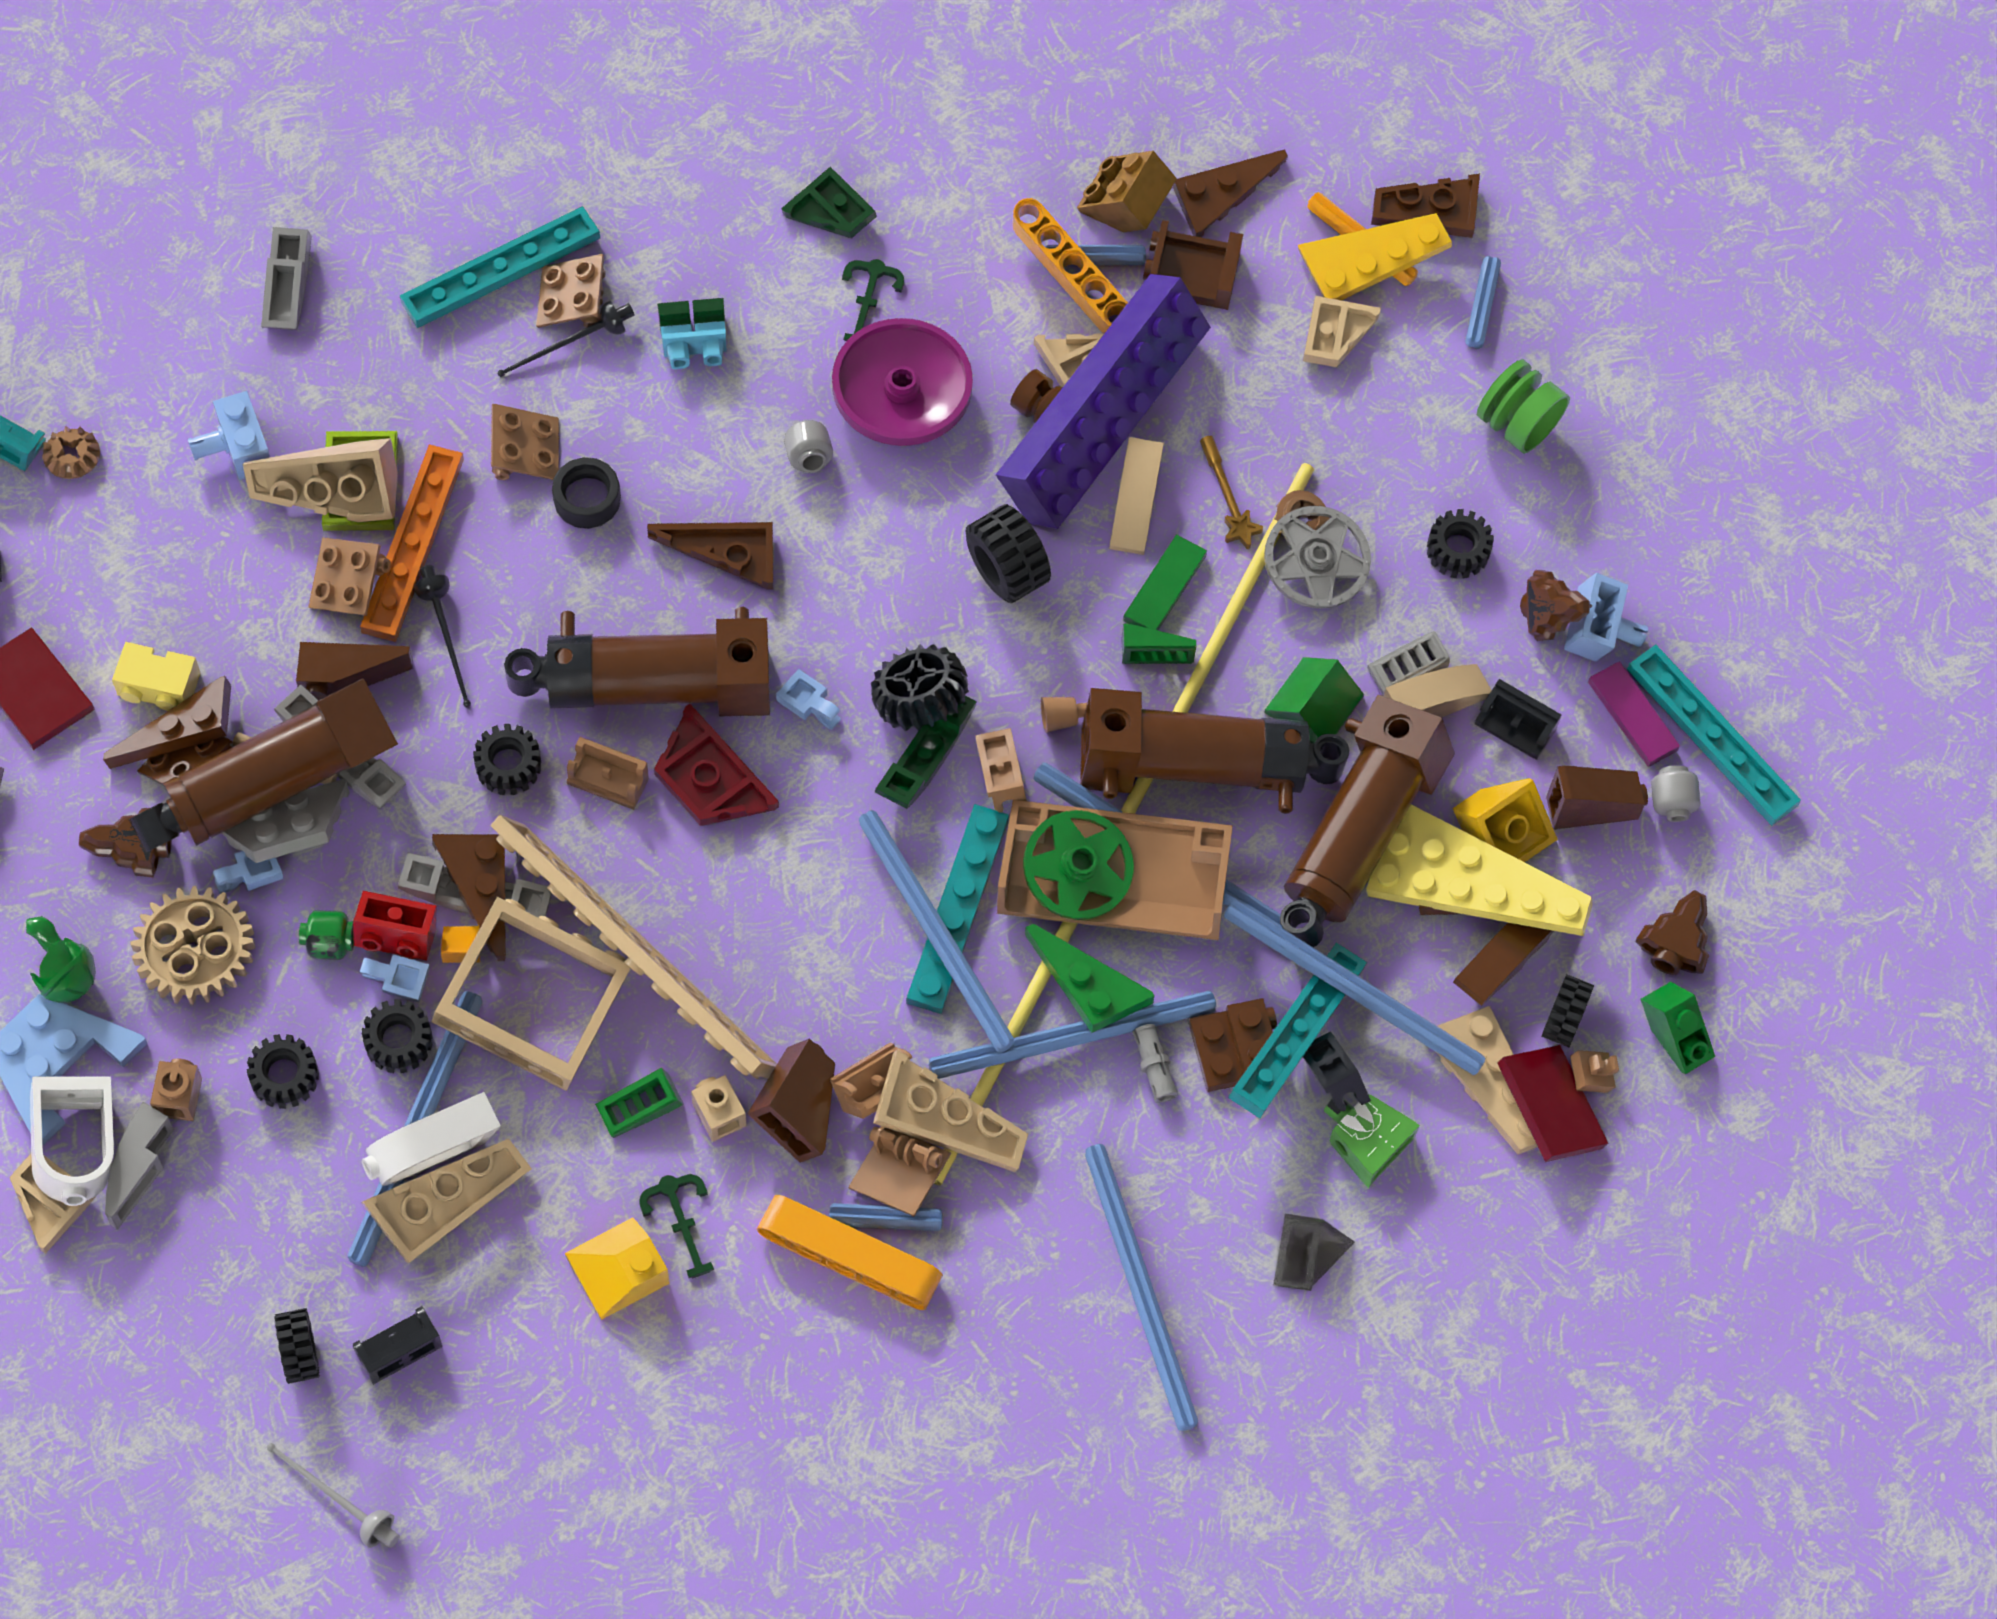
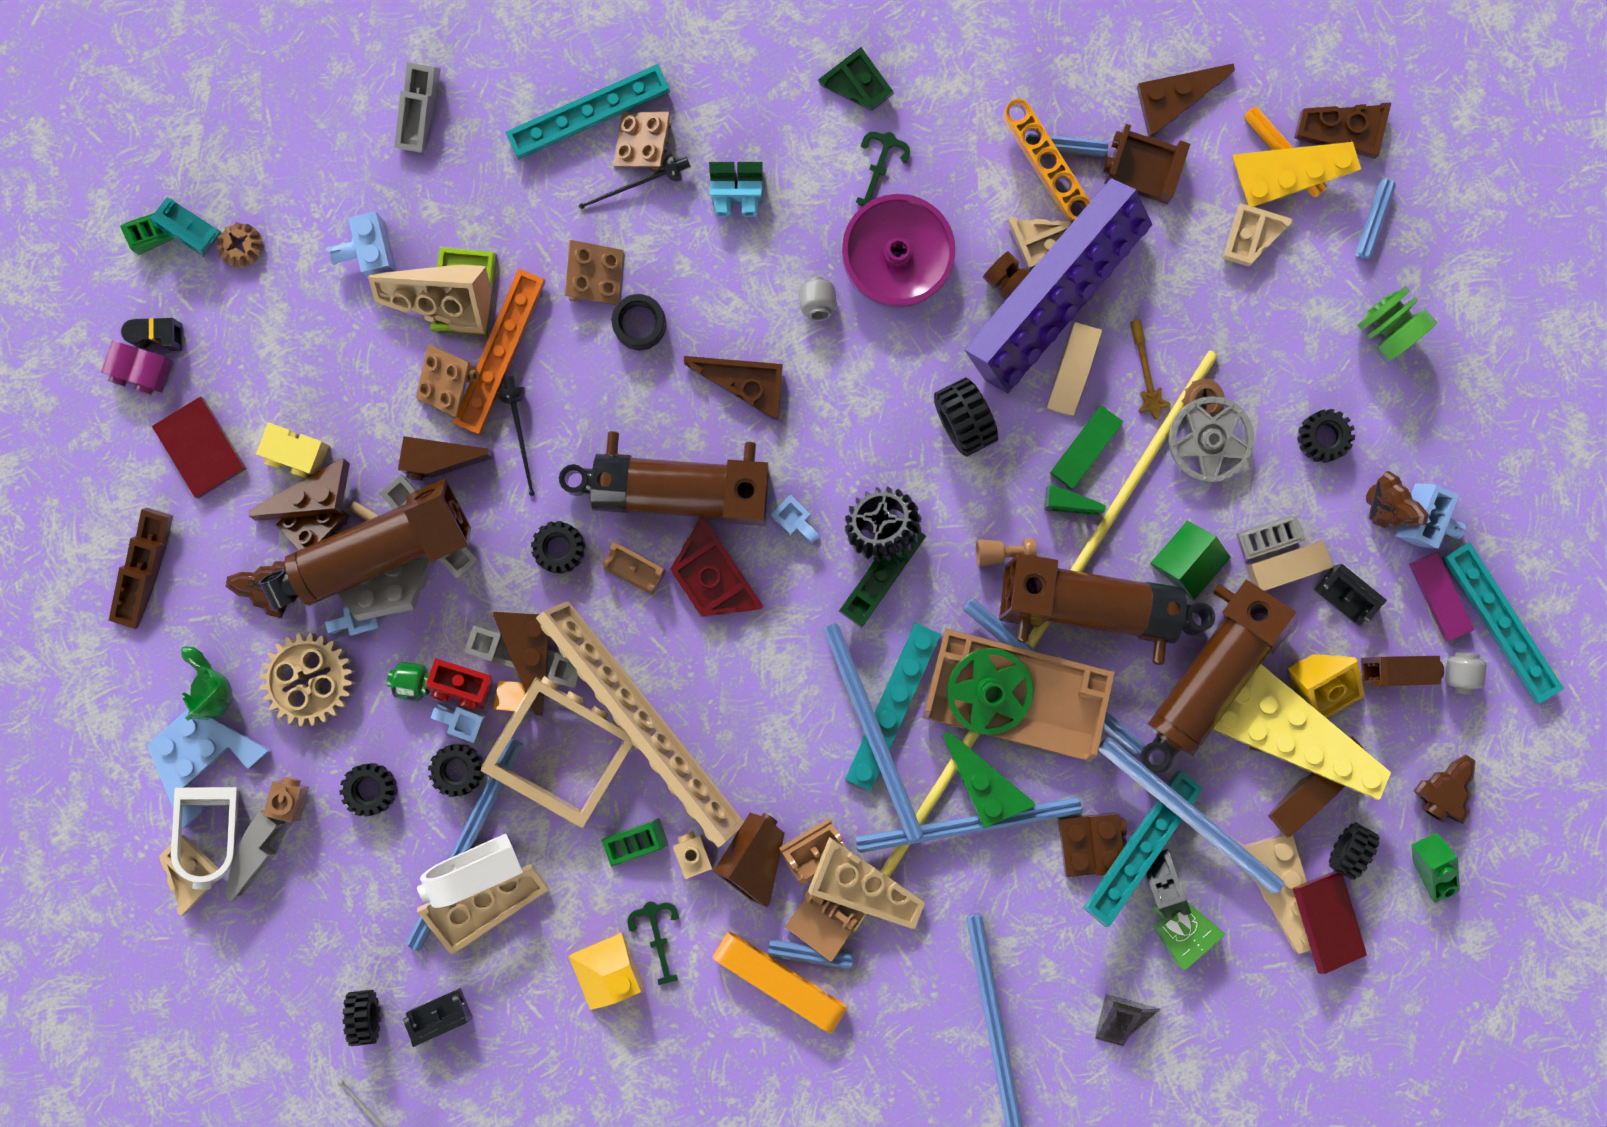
camera: 10 degrees right, 20 degrees up
(1000, 767) = (939, 599): medium nougat hinge -> none
(1128, 191) = (1100, 91): pearl gold slope -> none
(1155, 1063) = (1028, 853): light grey pin -> none
(1594, 1071) = (1365, 896): medium nougat tile -> none

